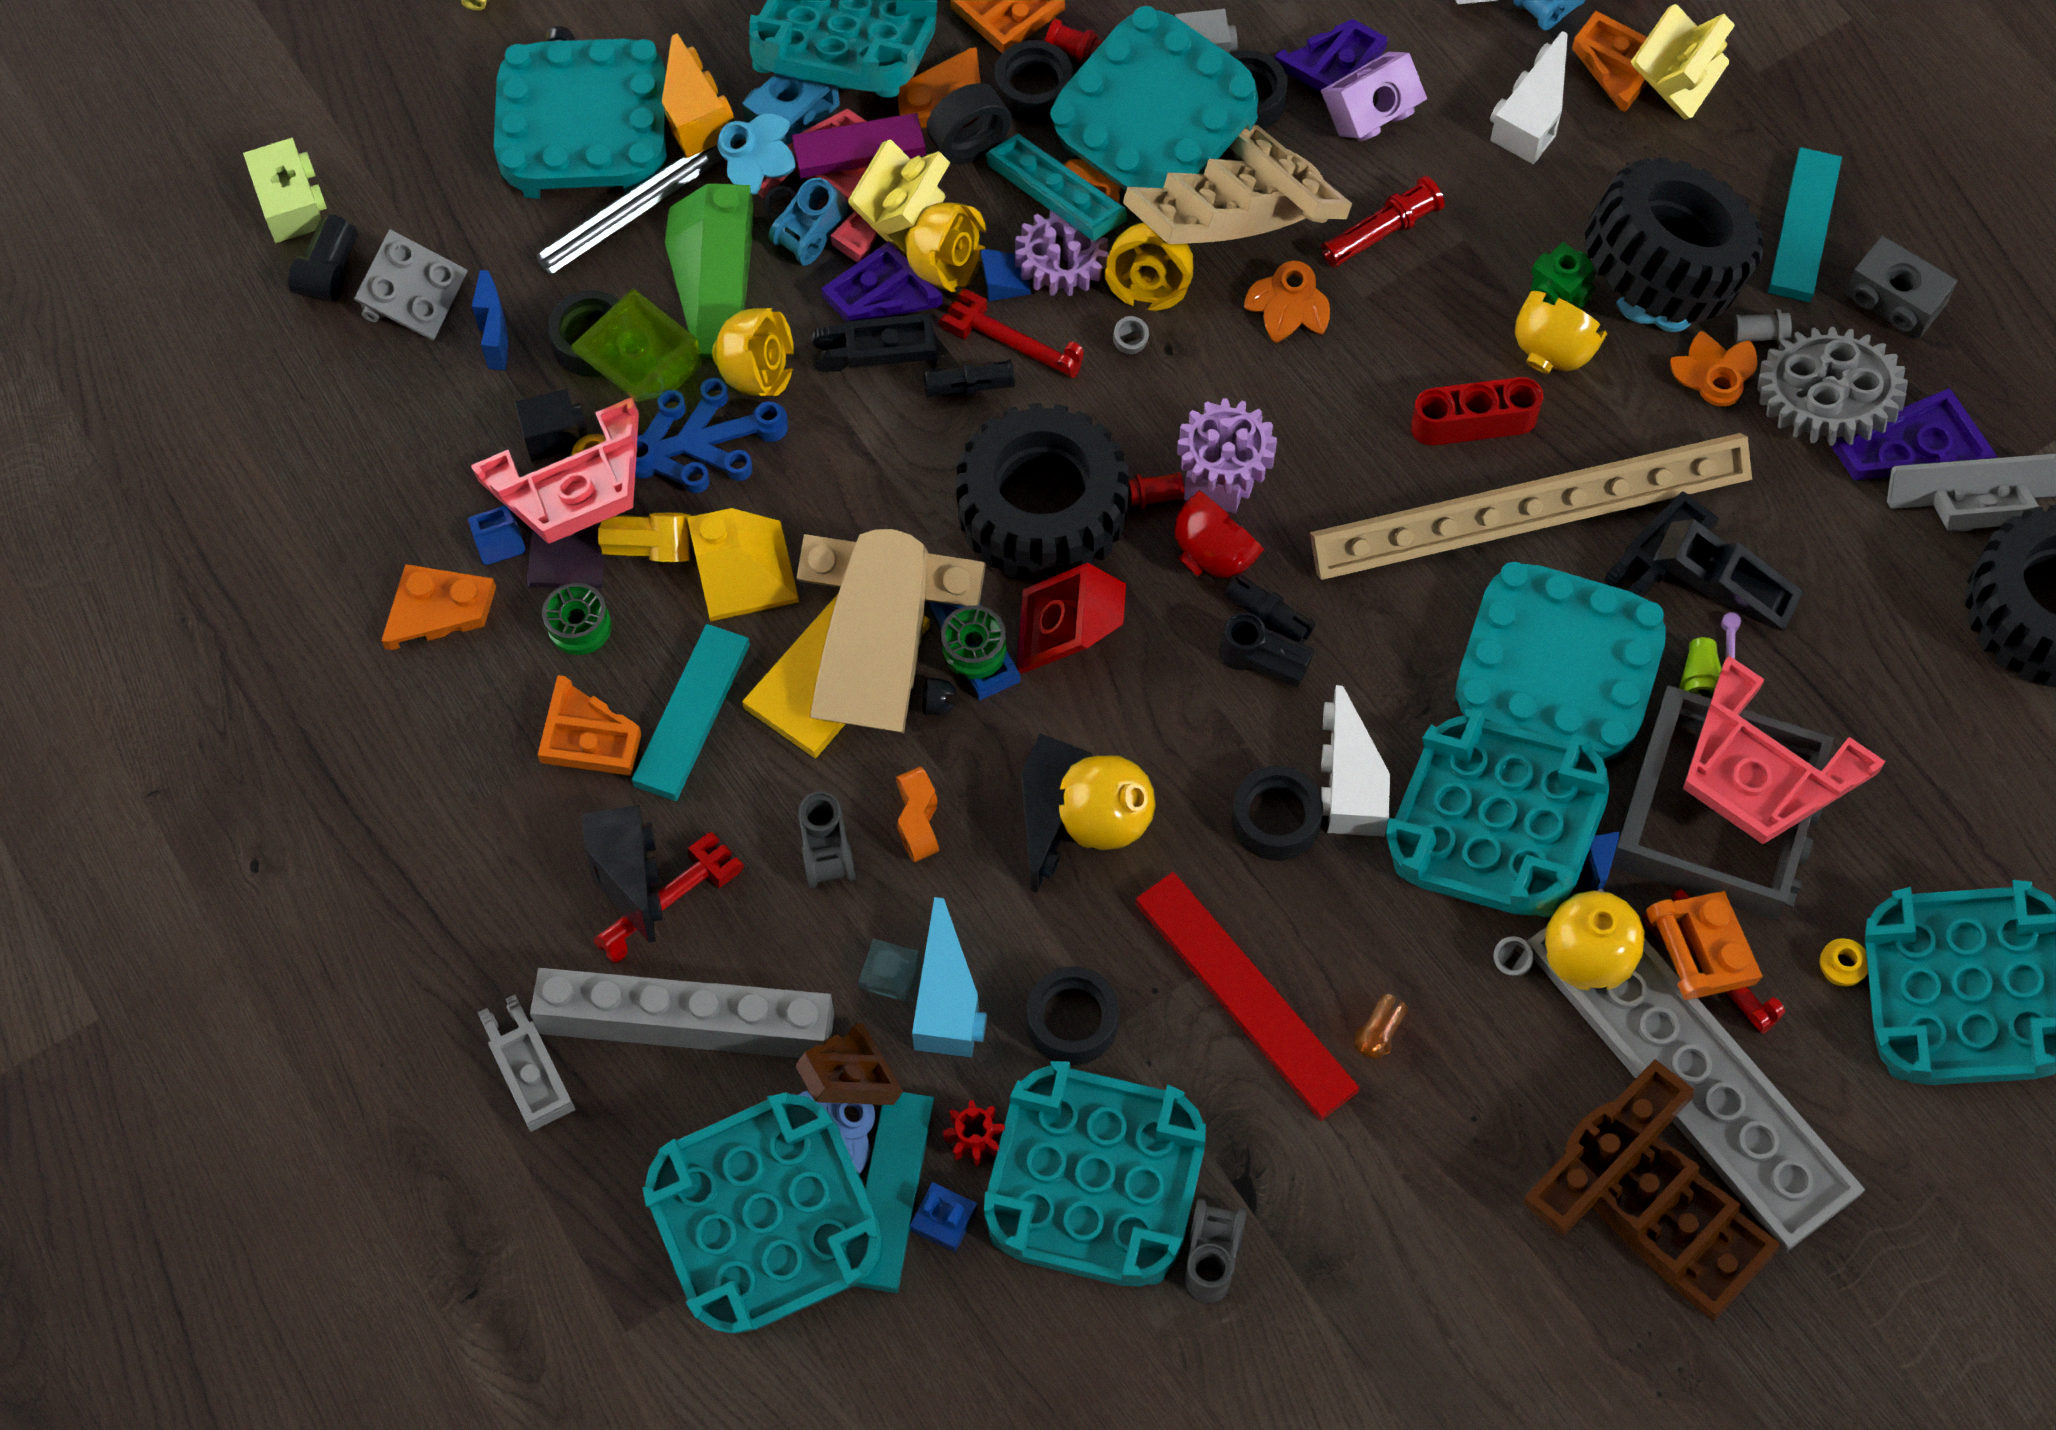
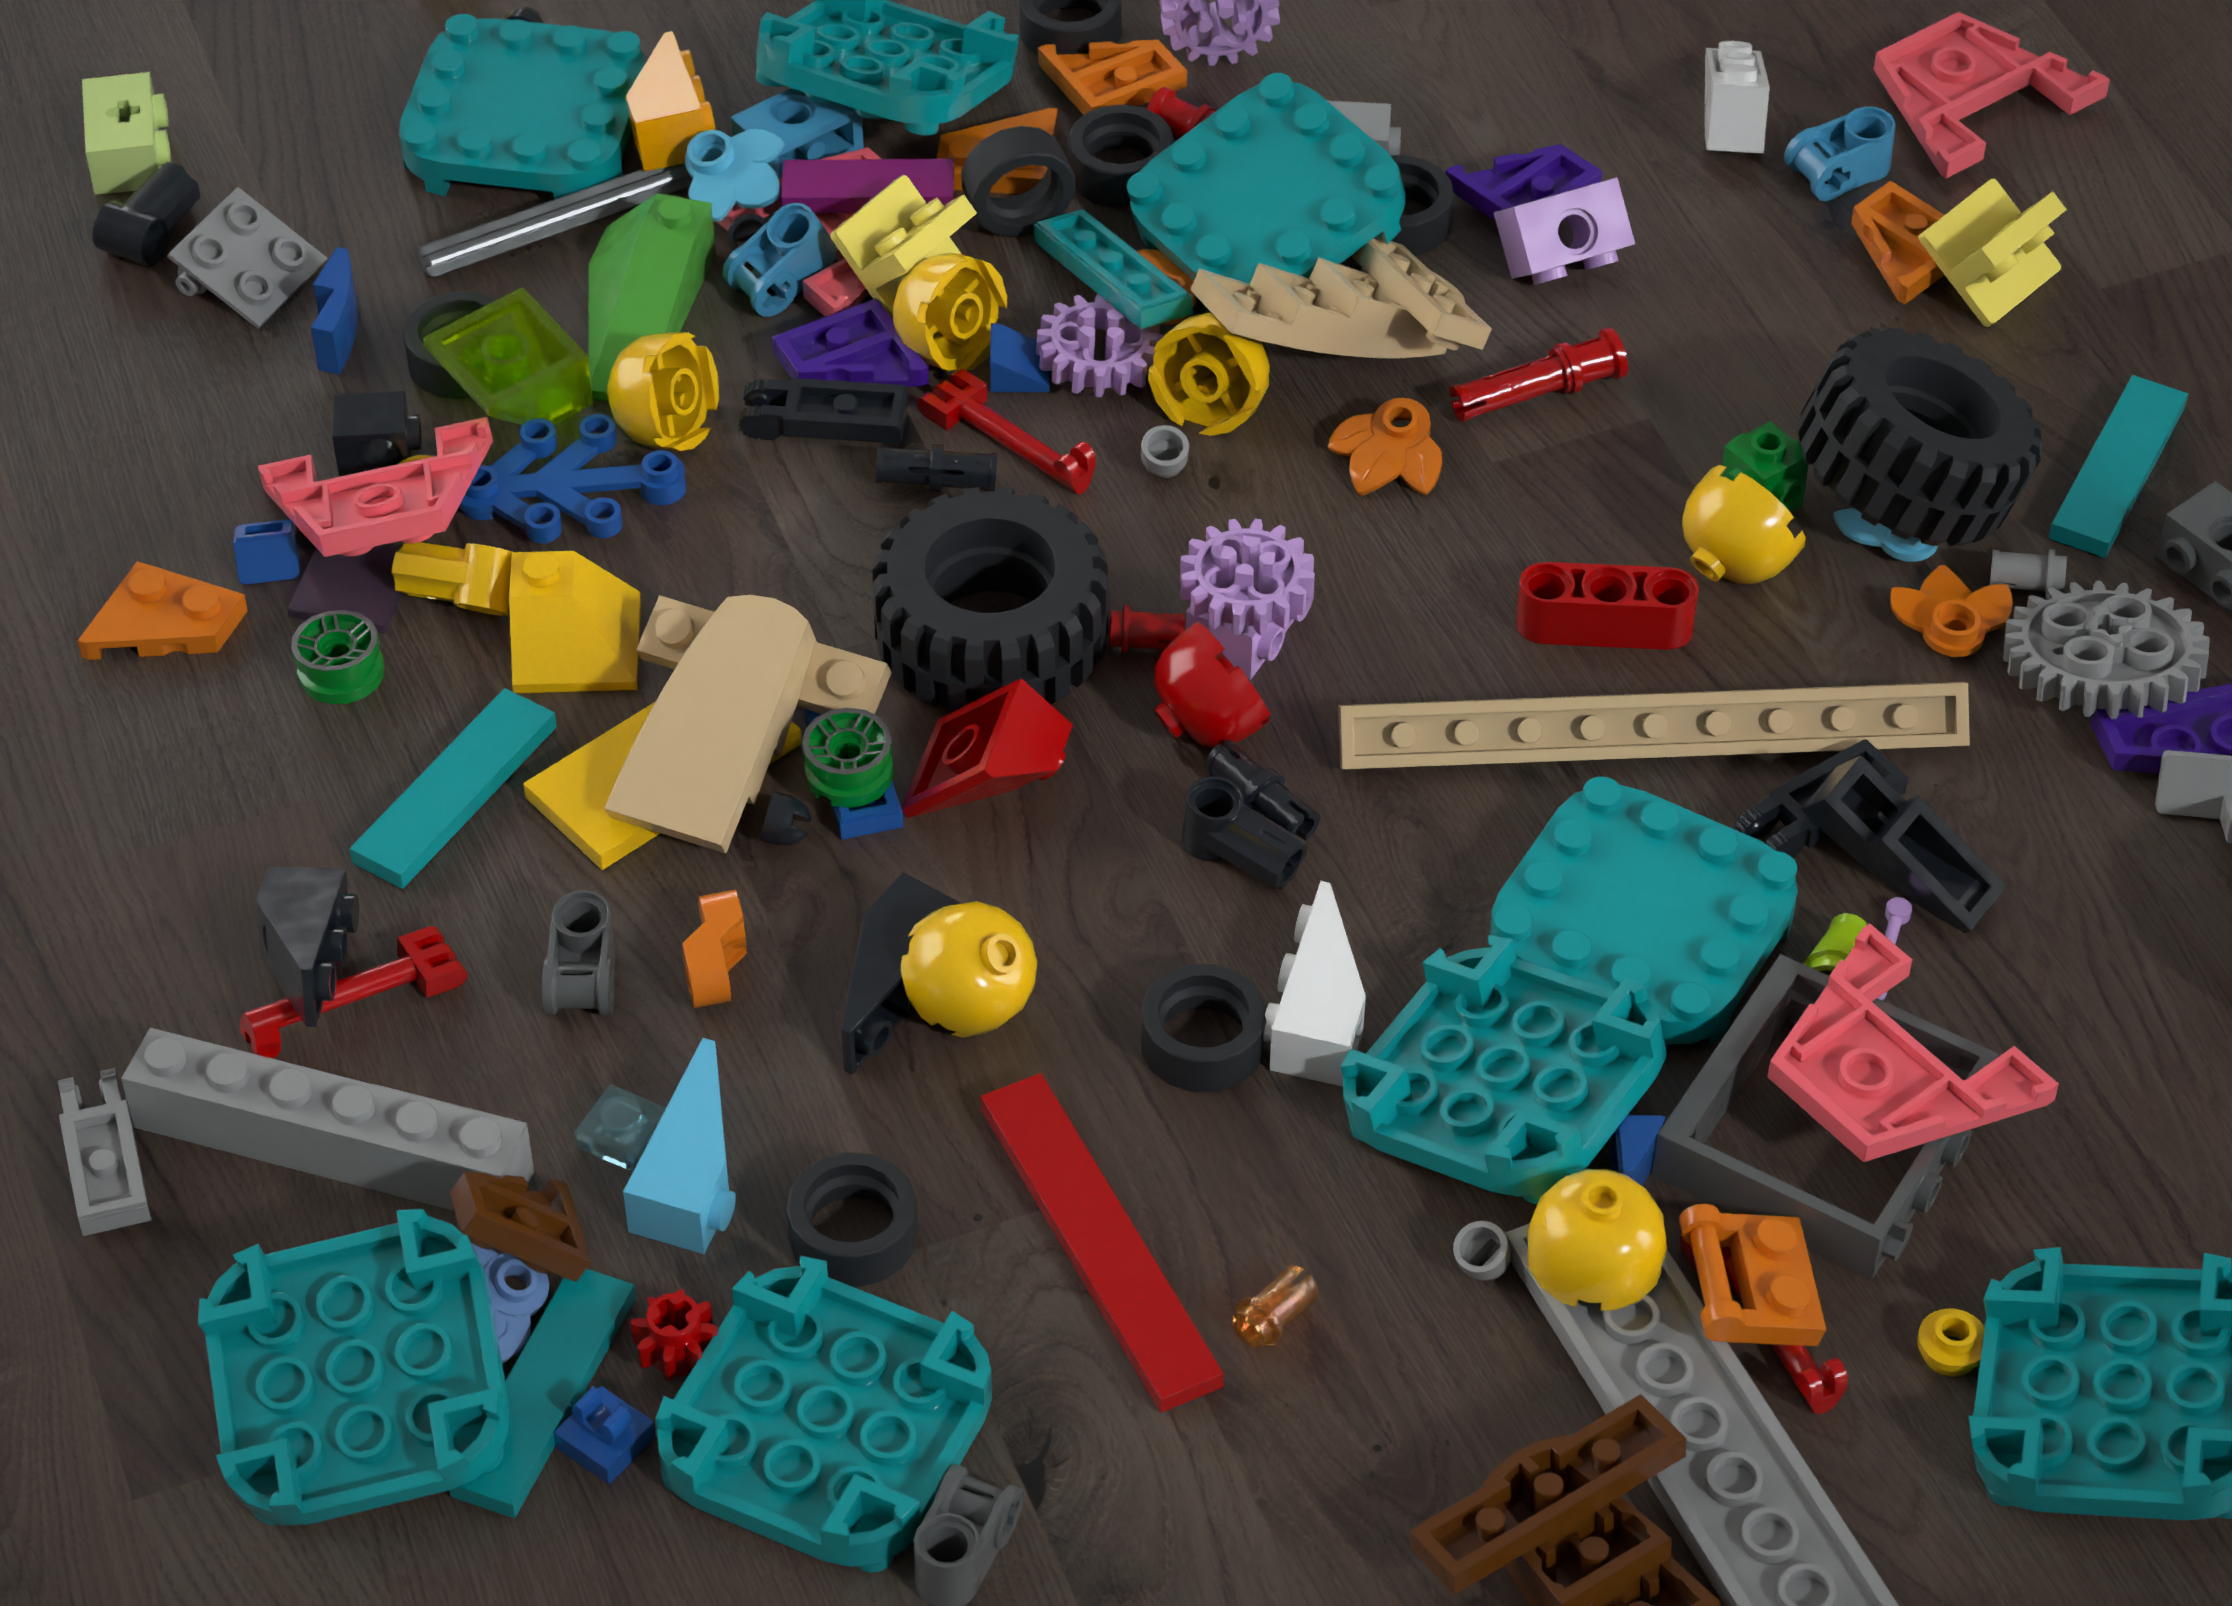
camera: 10 degrees right, 15 degrees down
(587, 734) = (308, 787): orange wing -> none
(1532, 113) = (1775, 281): white slope -> none

